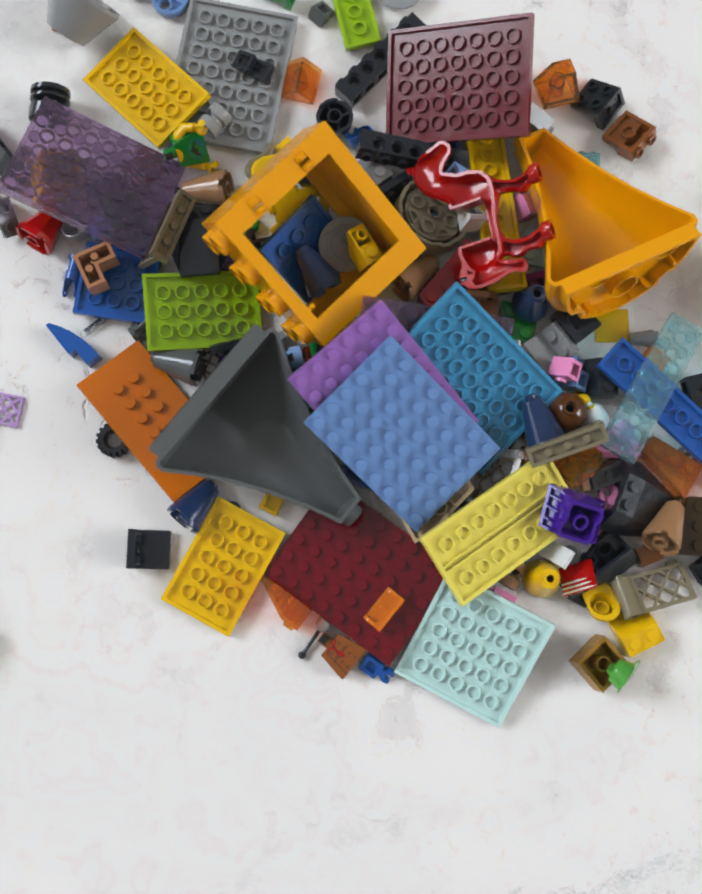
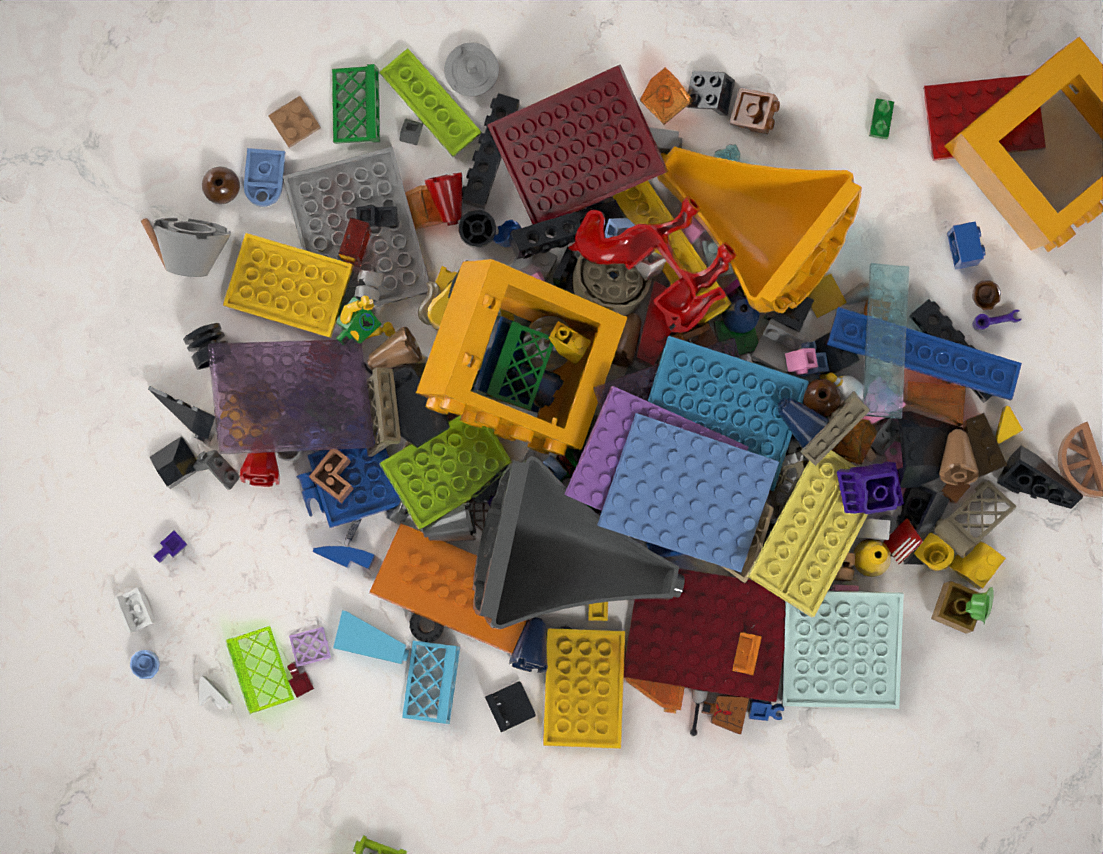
camera: 25 degrees left, 0 degrees up
(53, 426) = (364, 639): none -> medium azure slope
(103, 504) = (447, 685): none -> medium azure fence
(221, 76) = (354, 248): none -> clear red window
(294, 237) = (504, 361): none -> green fence
(323, 76) = (447, 196): none -> red cone

